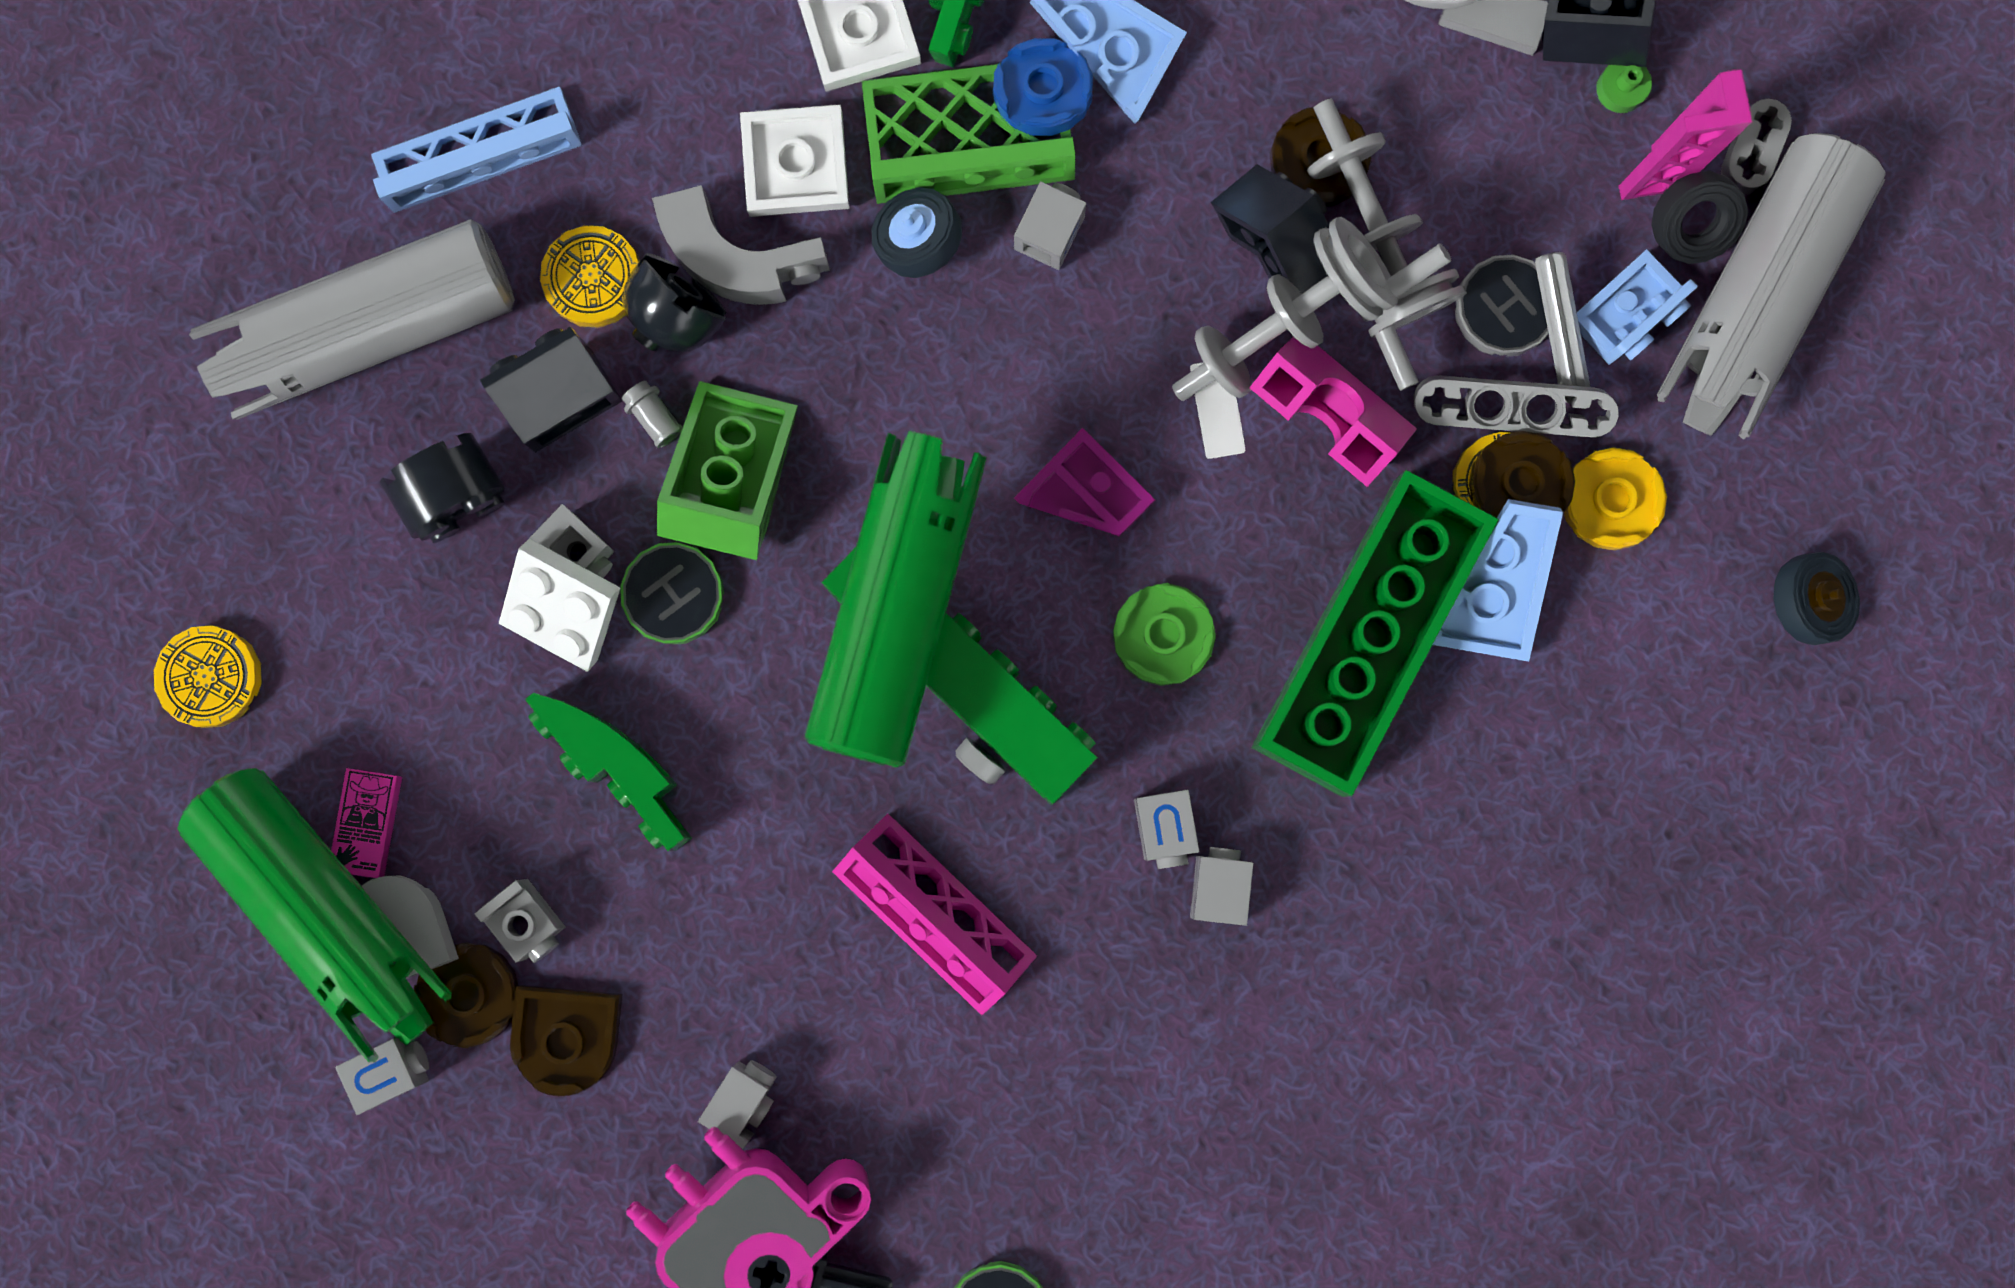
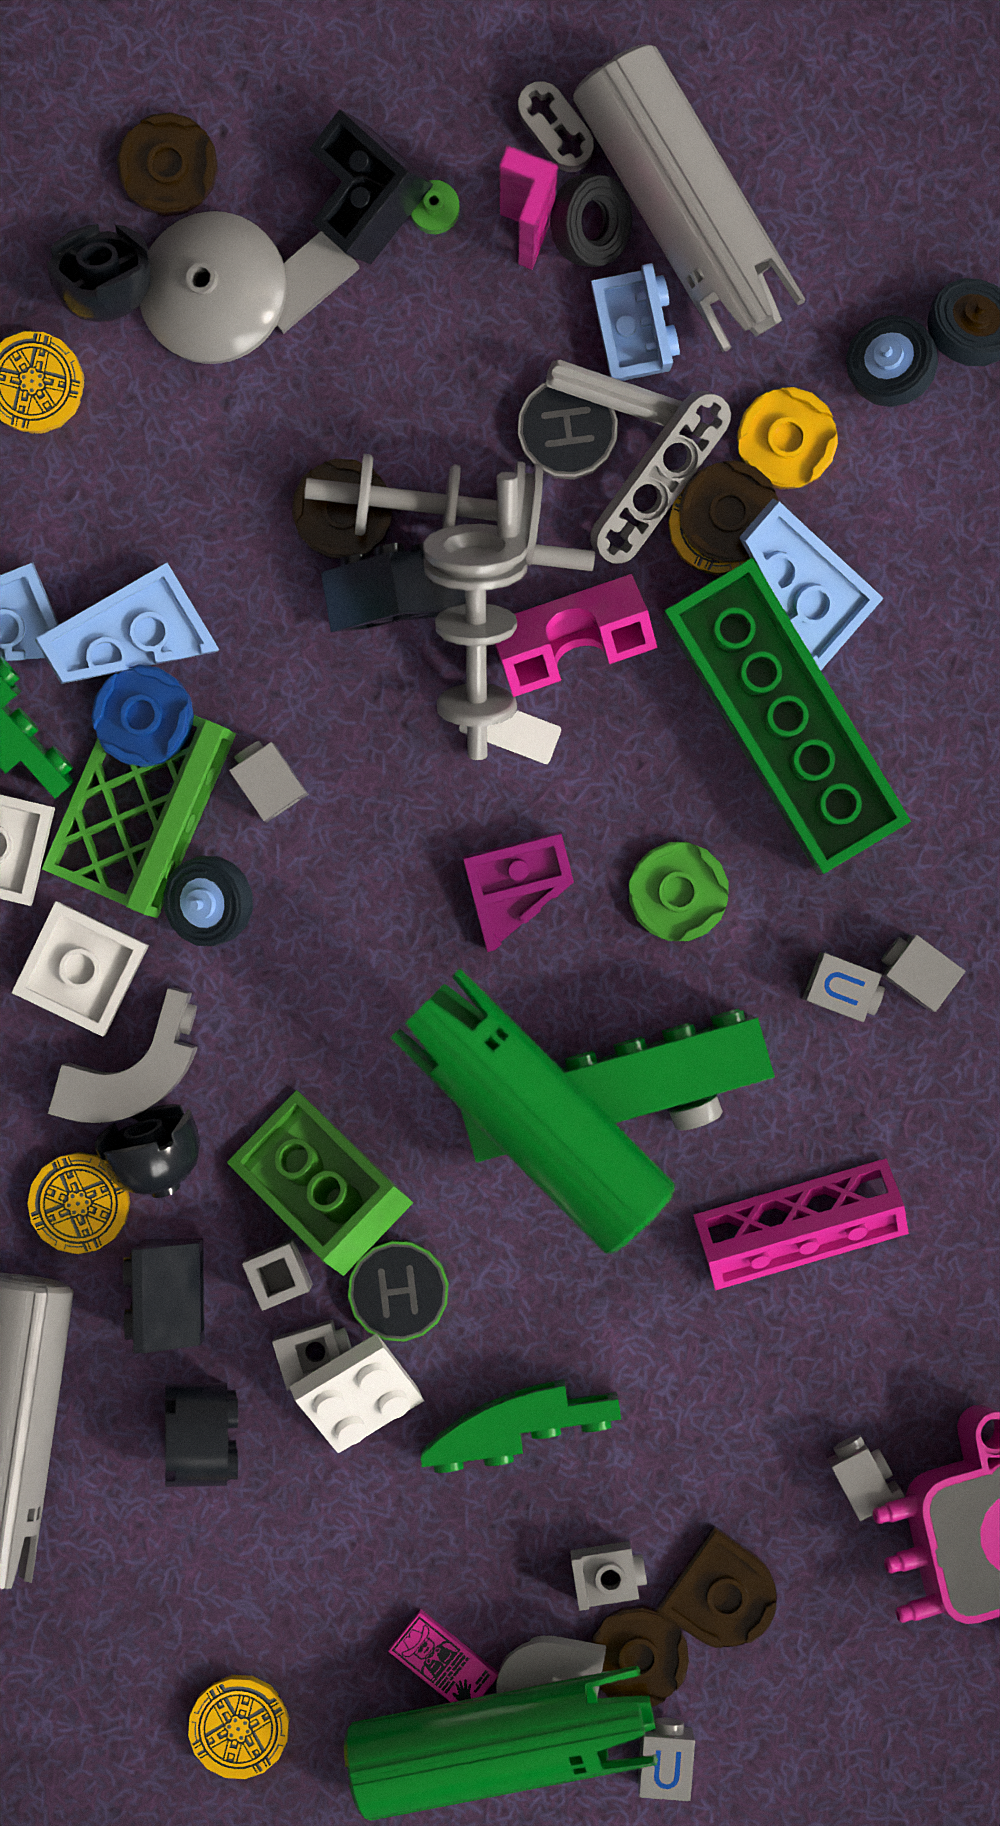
camera: 60 degrees left, 5 degrees up
(625, 475) = (277, 1274): none -> light grey brick
(651, 413) = (232, 1219): light grey pin -> none
(1739, 547) = (892, 360): none -> black wheel

